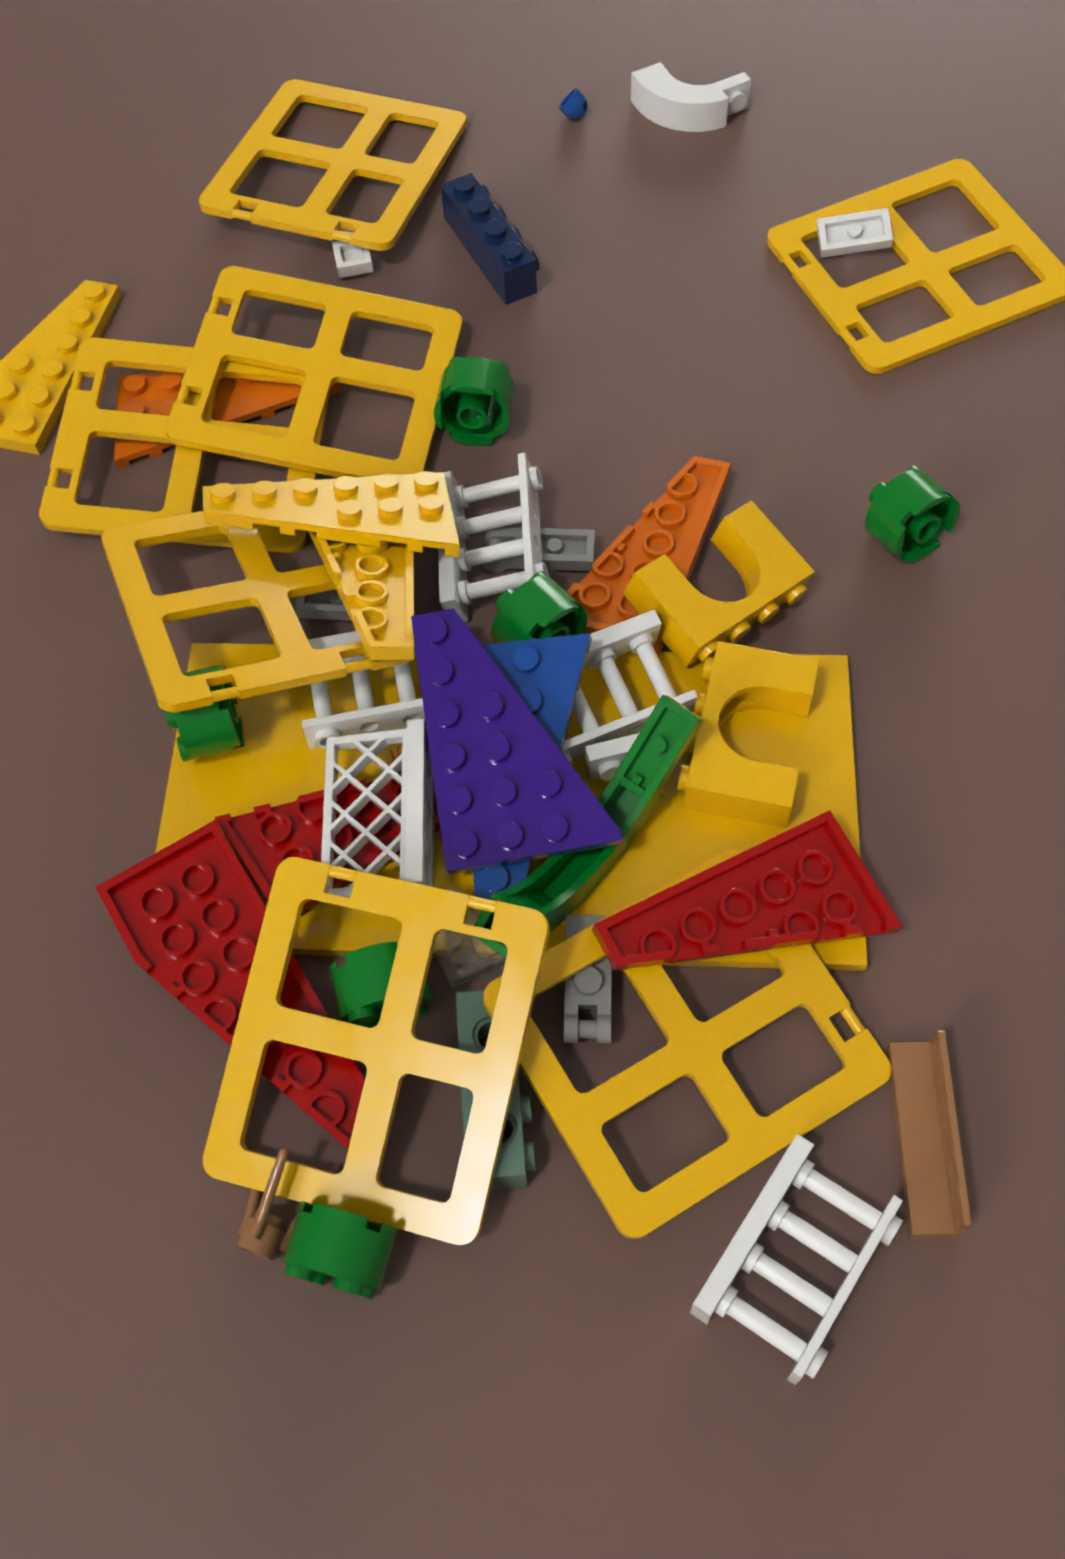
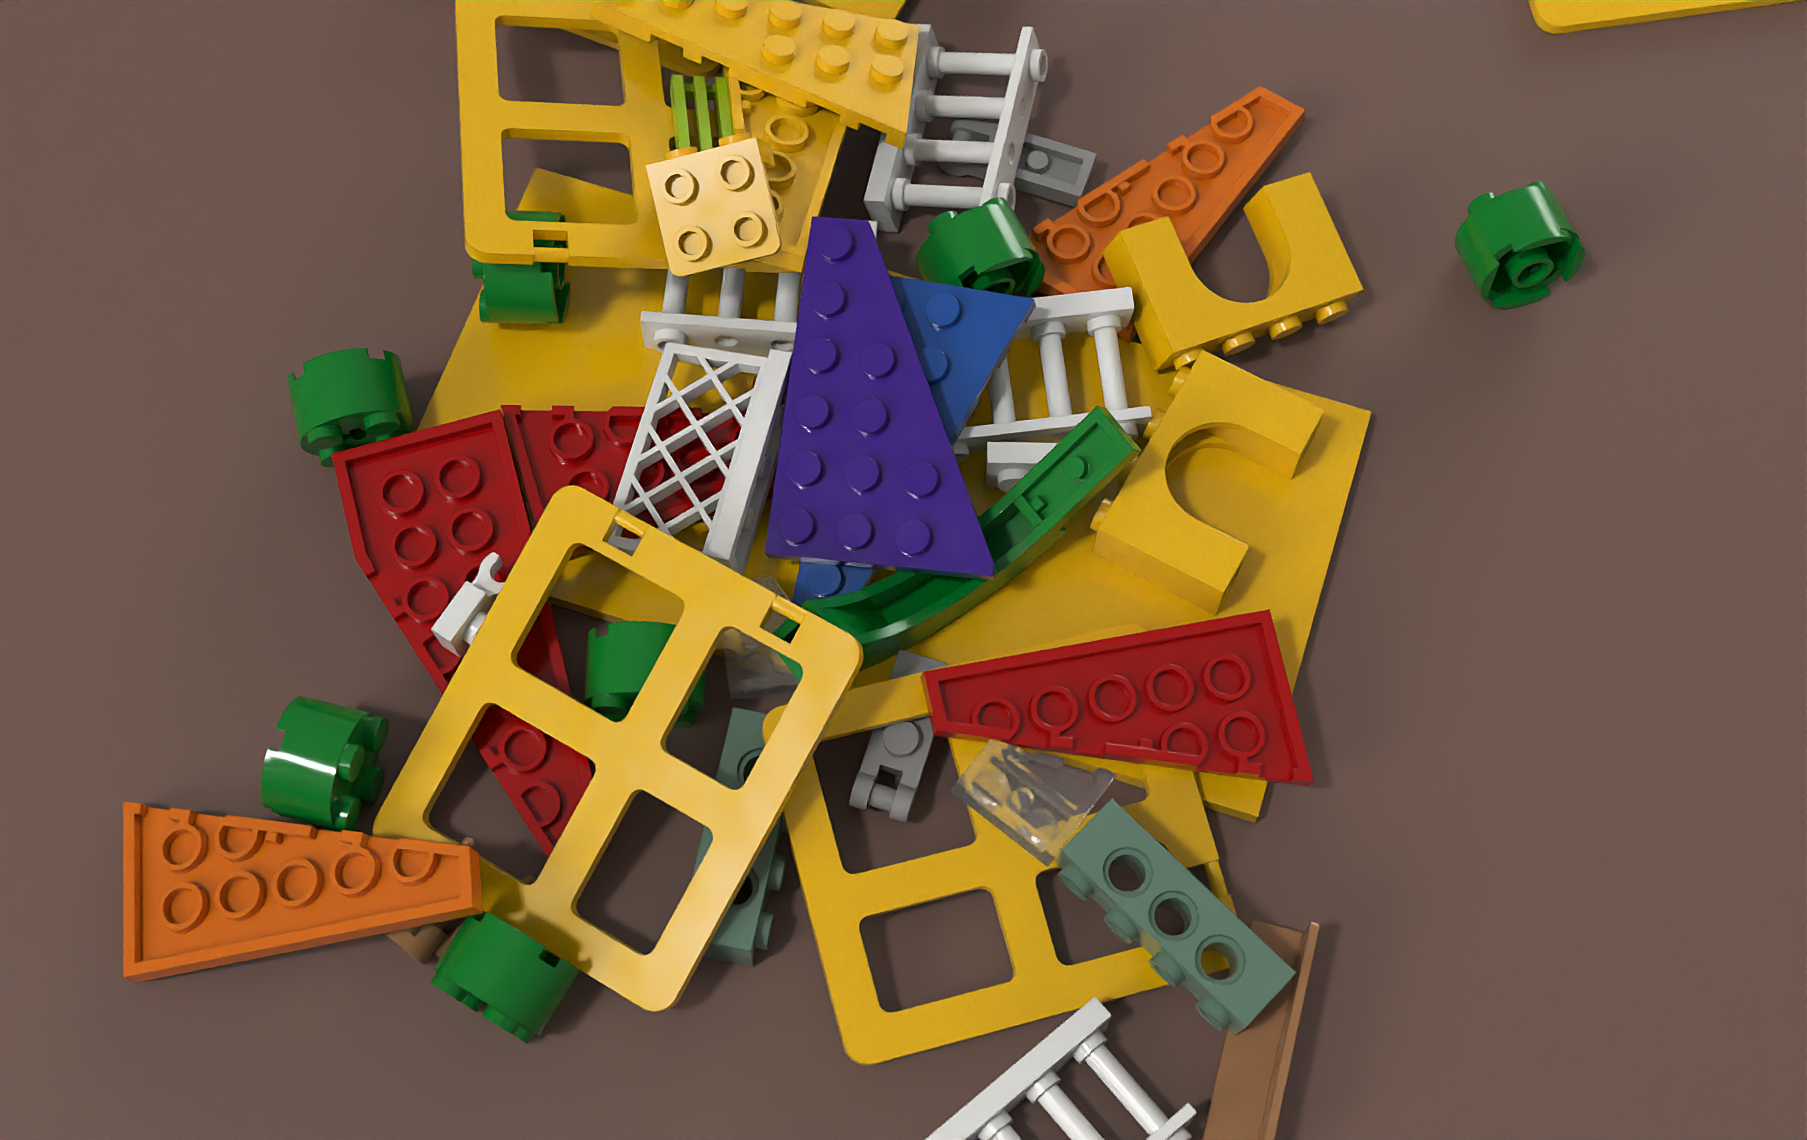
camera: 10 degrees right, 5 degrees up
(98, 845) = (349, 402): none -> green brick
(120, 1238) = (255, 888): none -> orange wing
(152, 1124) = (324, 764): none -> green brick
(234, 973) = (469, 608): none -> white plate
(302, 557) = (700, 93): none -> lime tile
(338, 626) = (715, 204): none -> yellow bracket
(701, 996) = (1030, 796): none -> clear wing
(908, 1078) = (1255, 968): none -> sand green brick

